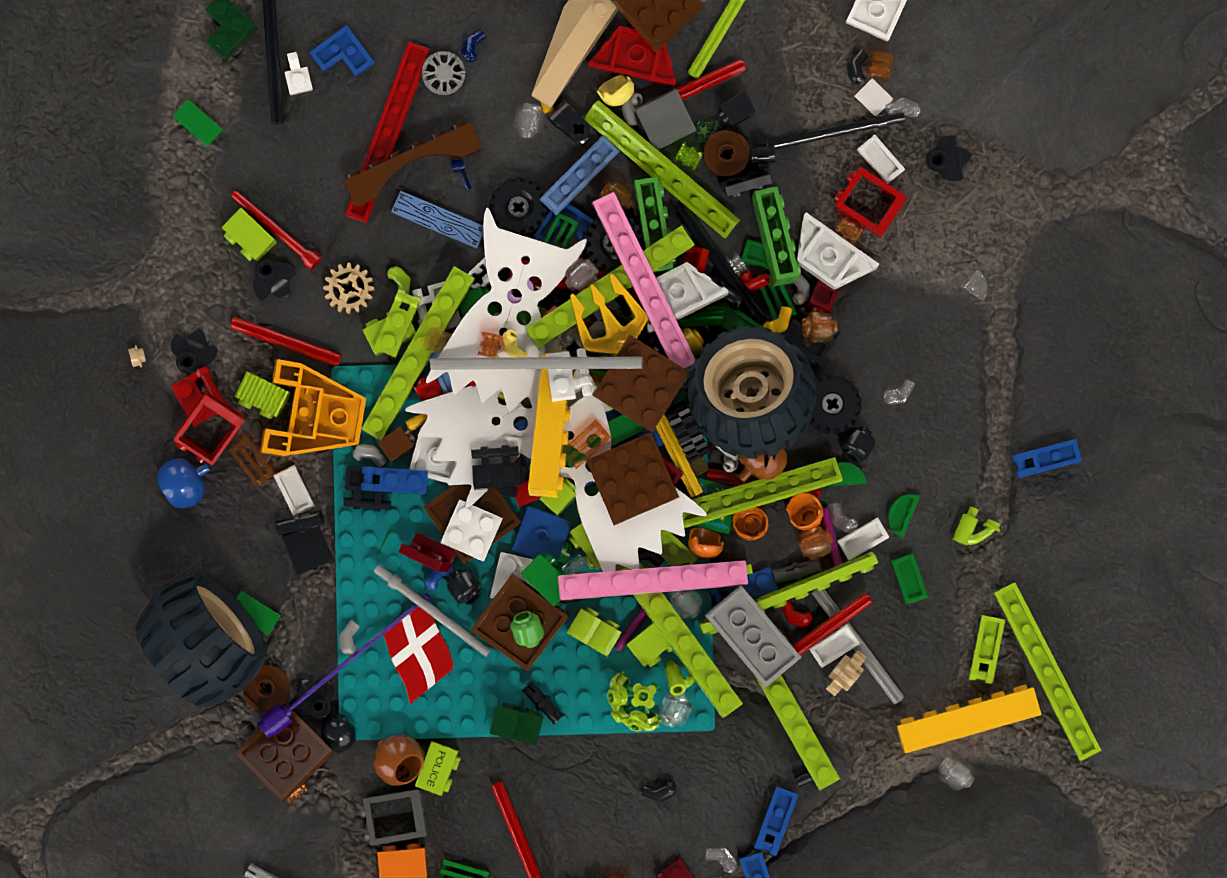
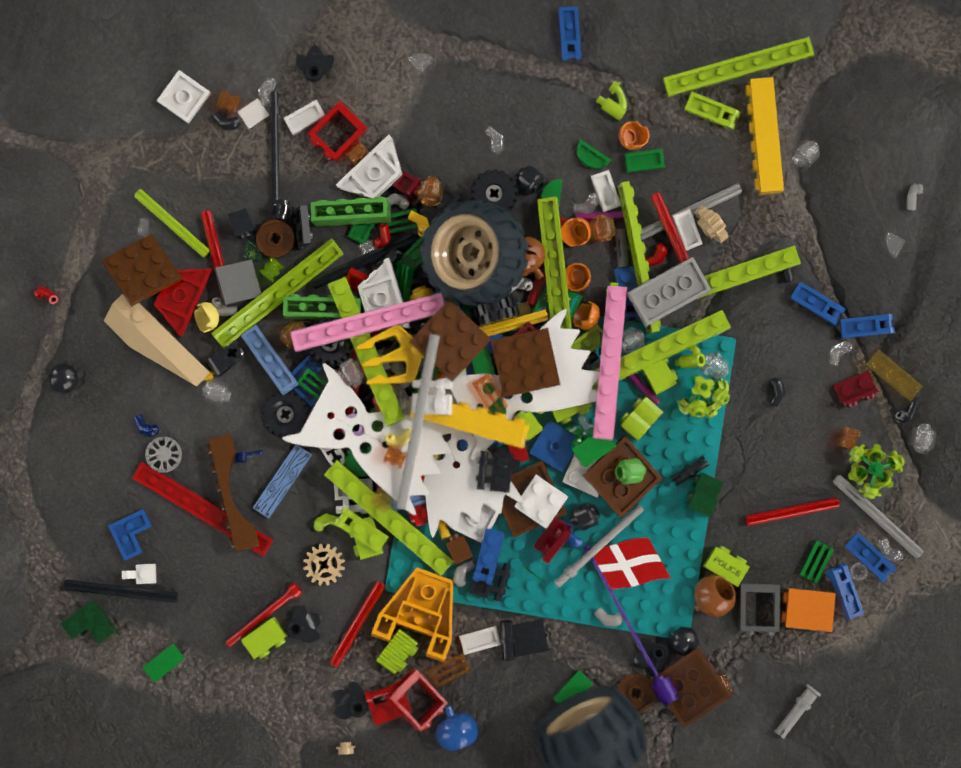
camera: 85 degrees left, 0 degrees up
(936, 559) = (633, 135): none -> orange hair

